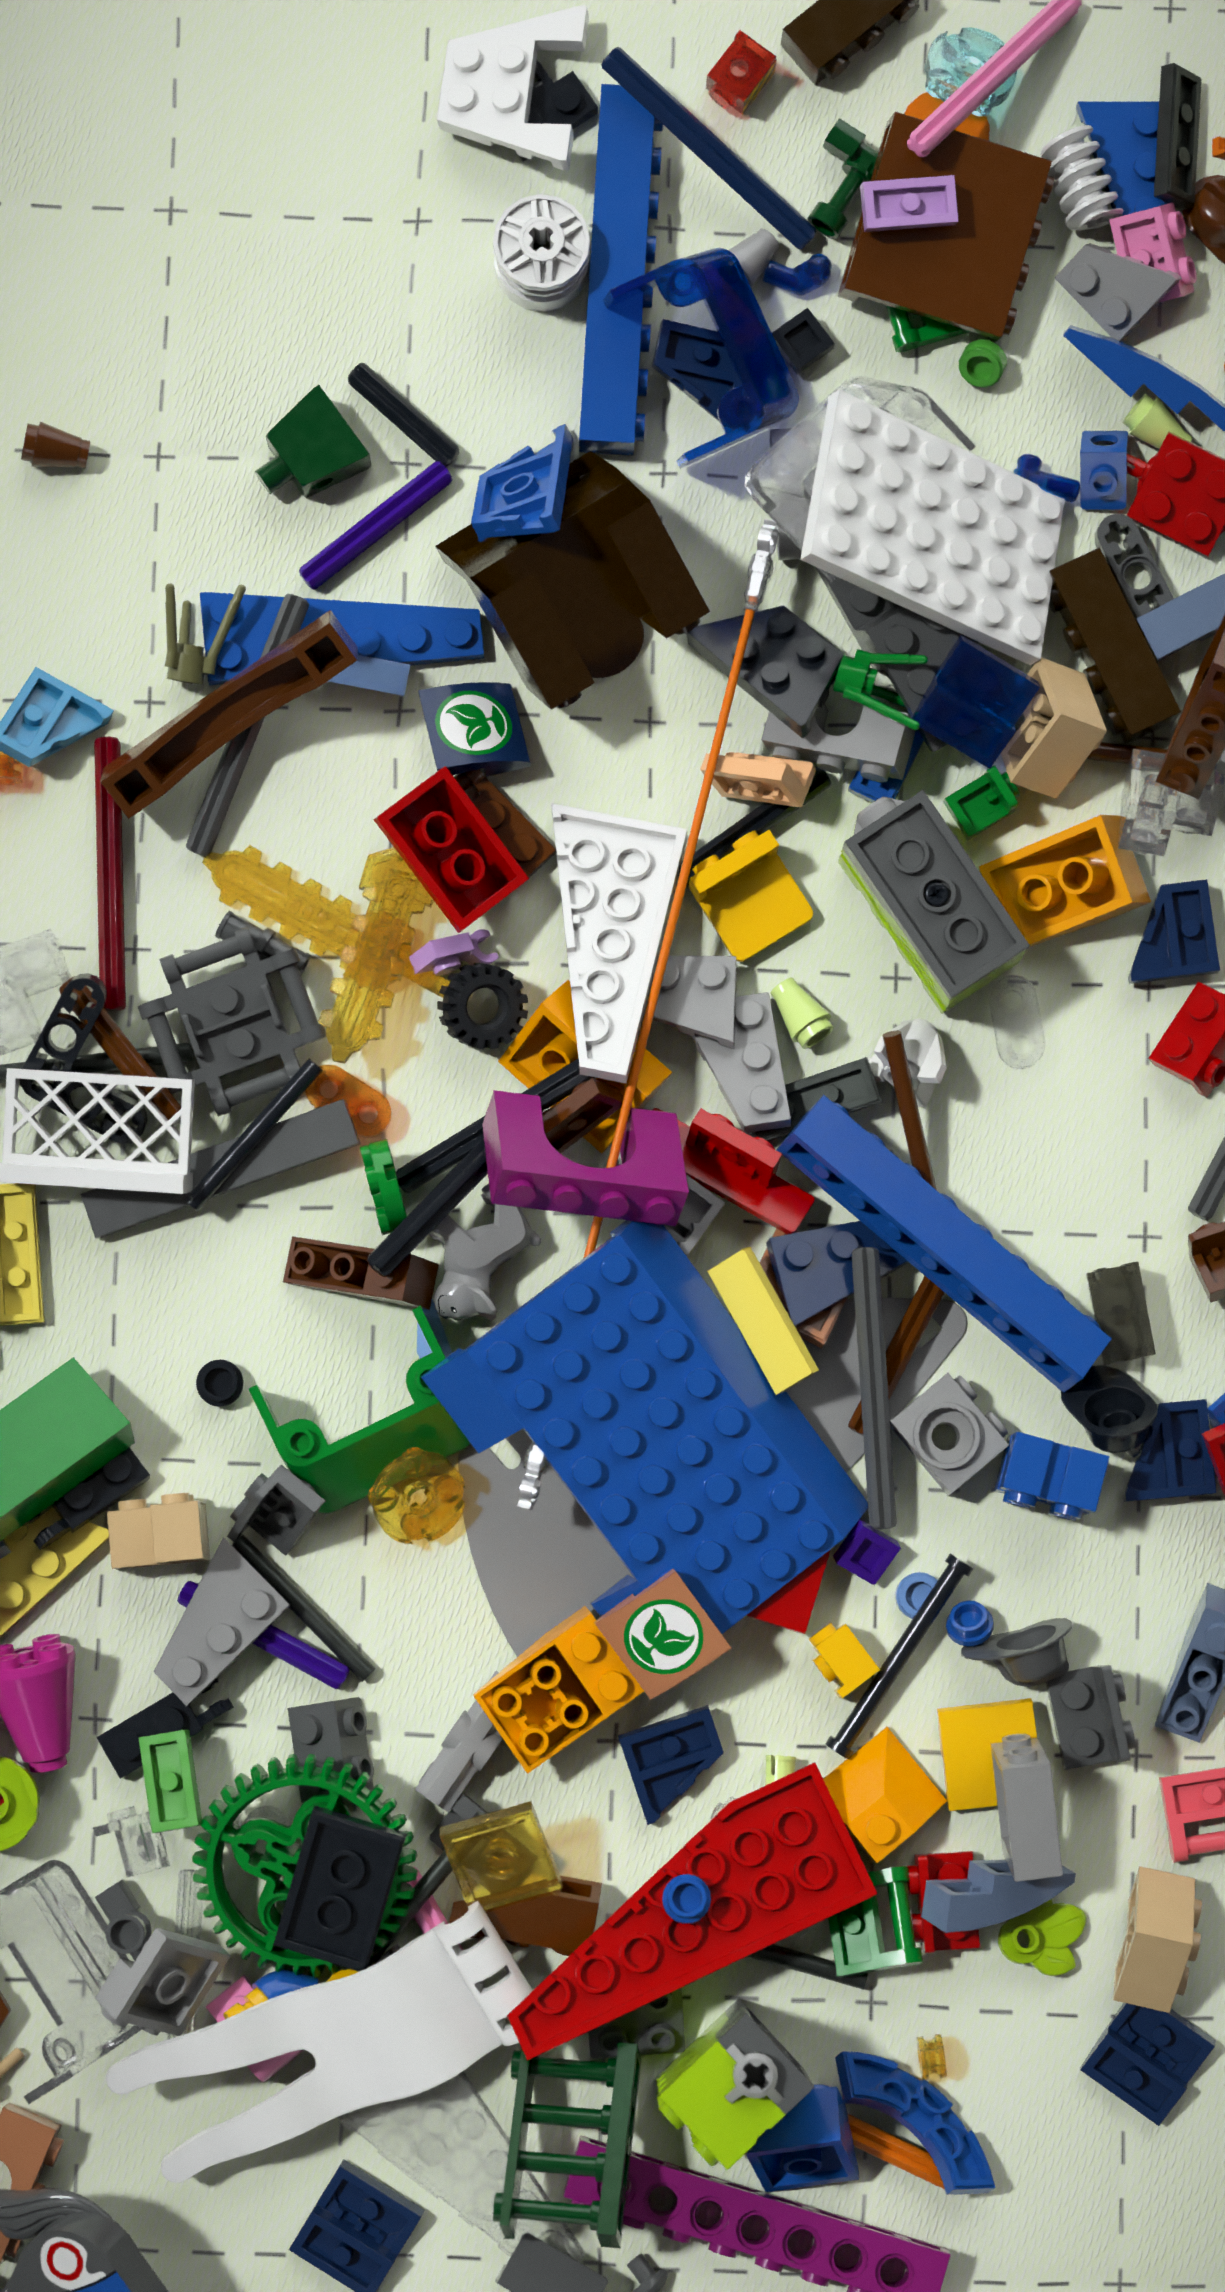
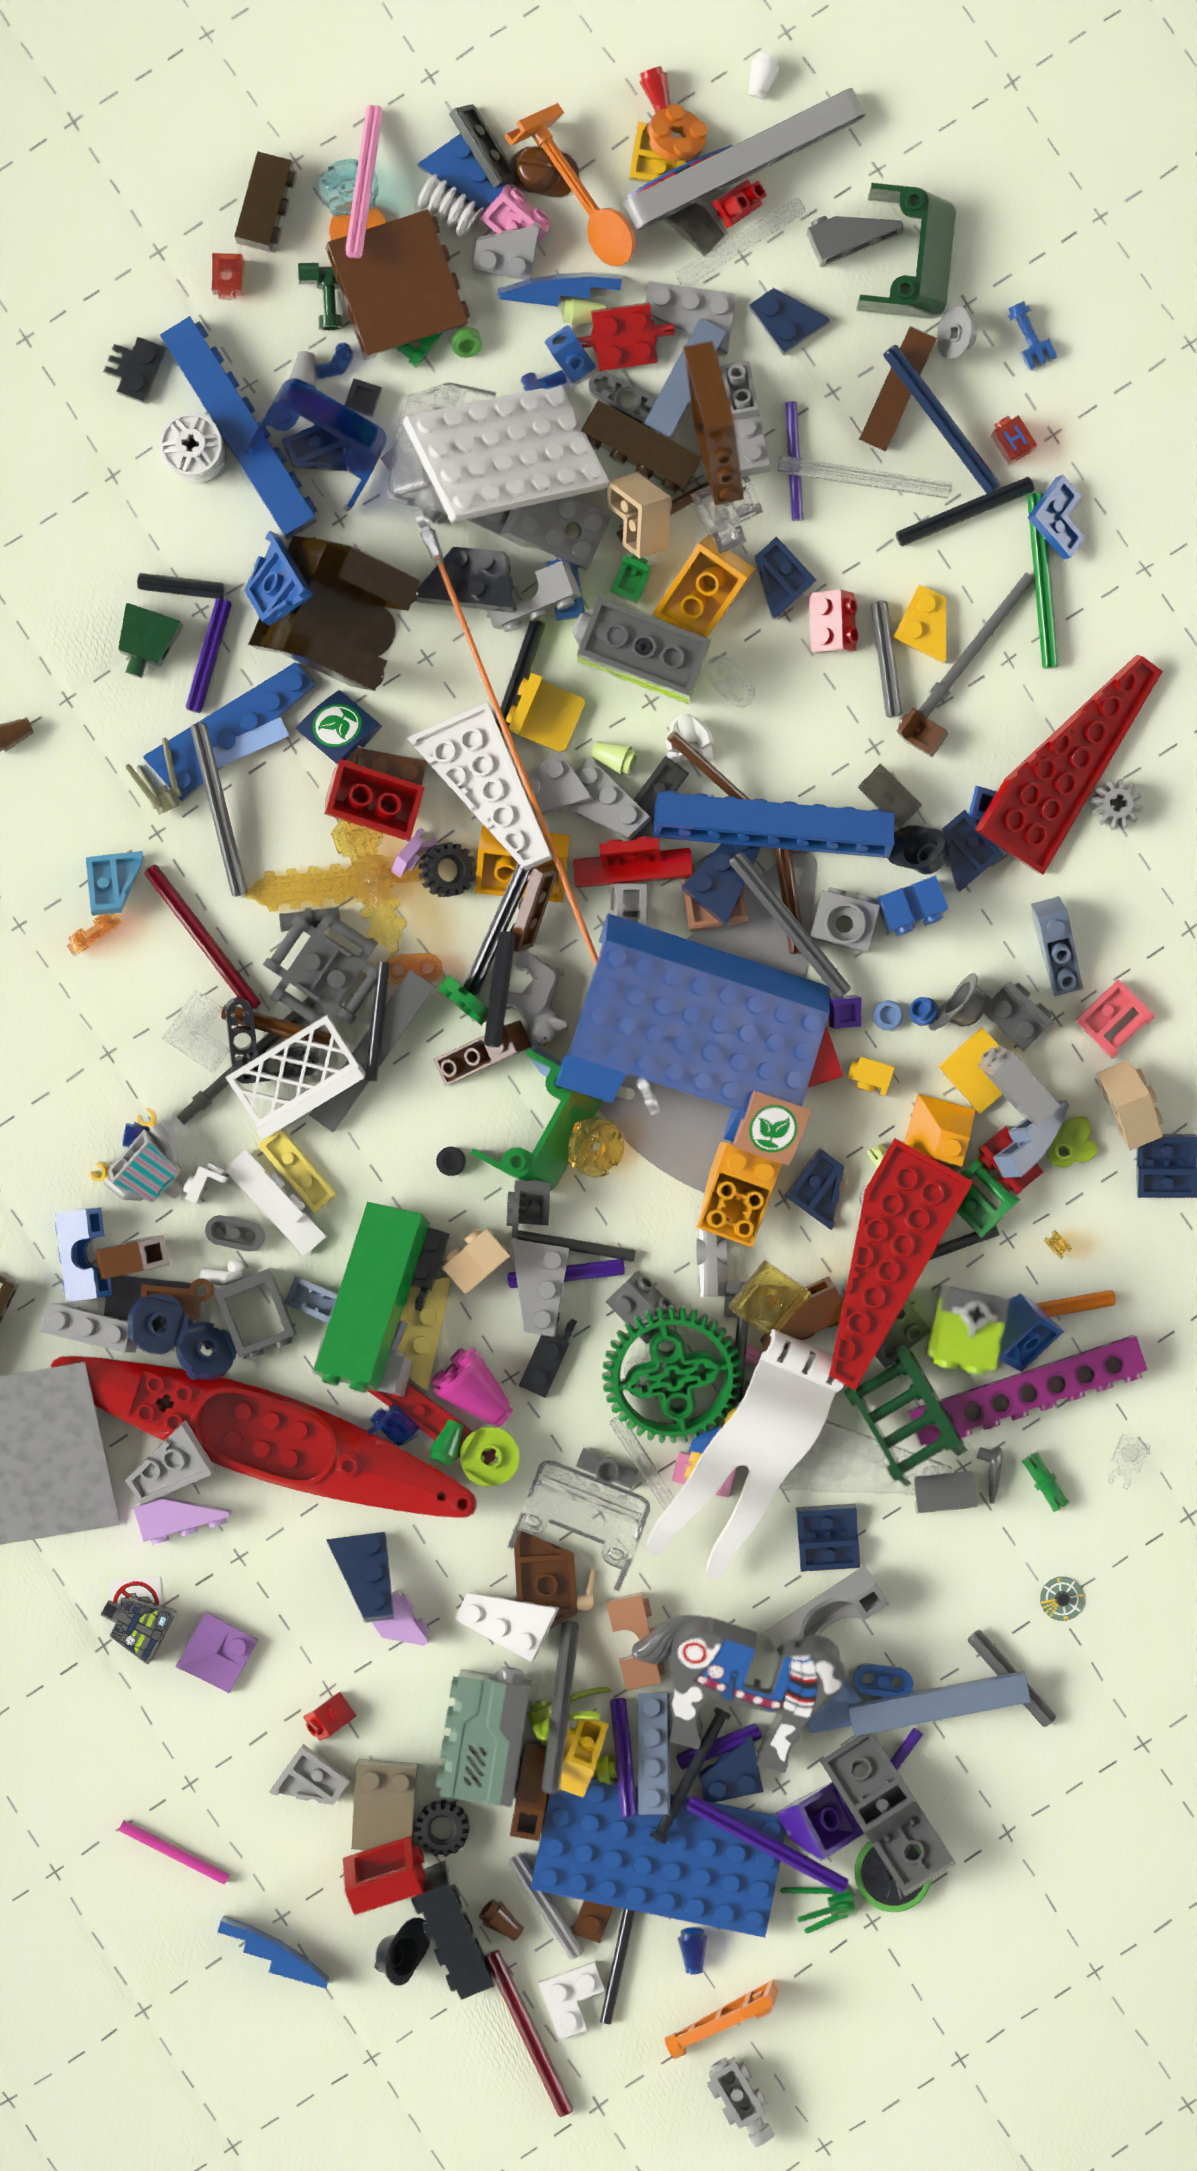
camera: 30 degrees left, 5 degrees up
(137, 1844) = (577, 1422): clear bracket -> none
(162, 1984) = (643, 1483): light grey plate -> none
(170, 1781) = (573, 1380): bright green plate -> none
(191, 737) = (191, 852): reddish brown arch -> none
(340, 1889) = (699, 1372): black tile -> none
(492, 80) = (100, 374): white wing -> none
(534, 1175) = (540, 940): magenta arch -> none
(686, 1898) = (878, 1252): blue plate -> none
(708, 147) = (240, 329): dark blue axle -> none
(762, 778) = (508, 647): light nougat bracket -> none
(763, 1320) = (708, 930): light yellow tile -> none
(857, 682) = (523, 562): green plant -> none
(899, 1656) = (899, 1053): black bar -> none
(909, 203) = (370, 287): lavender plate -> none
(922, 2110) = (1075, 1275): blue tile -> none
(975, 701) = (591, 529): clear blue slope -> none

